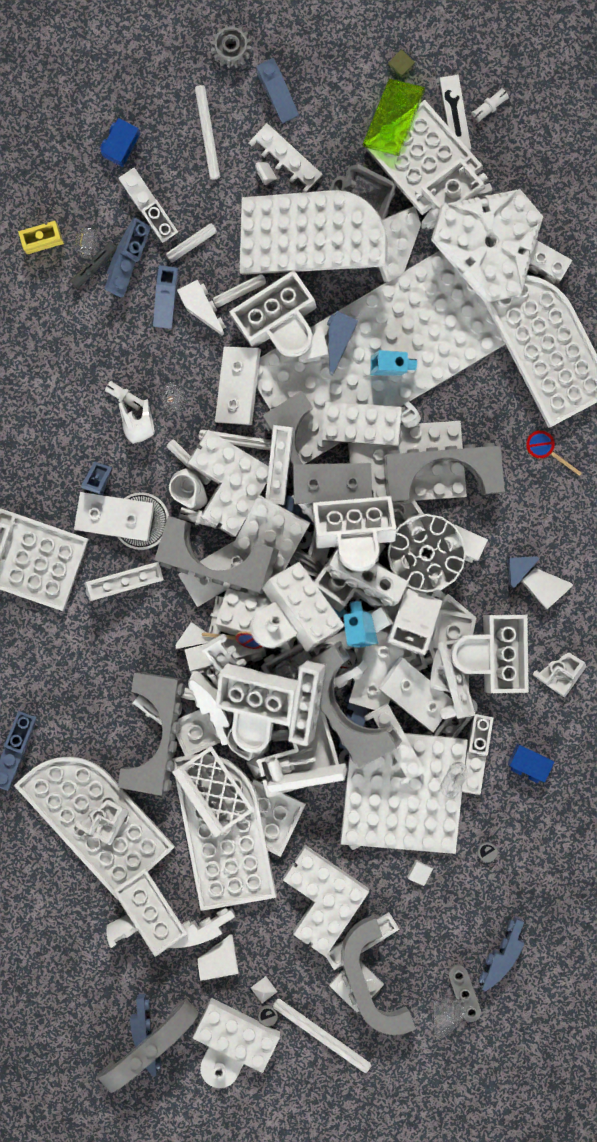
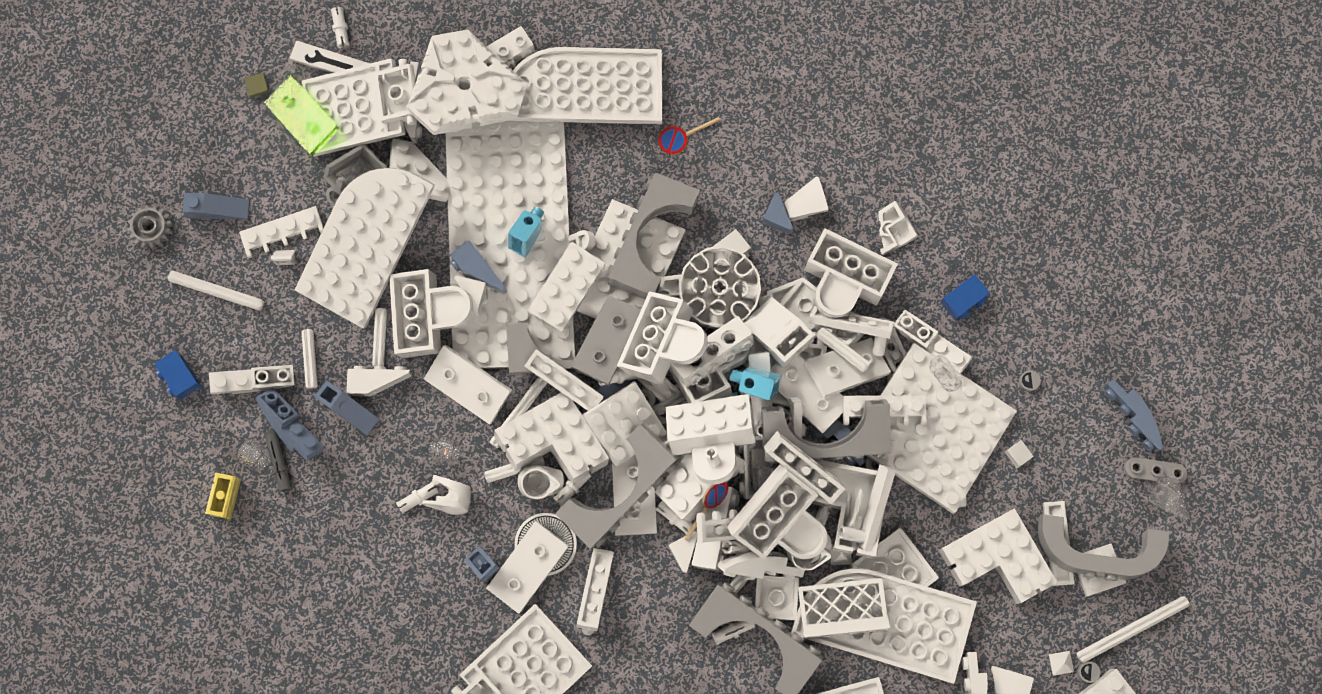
camera: 65 degrees left, 10 degrees down
(428, 683) = (843, 349): none -> white axle

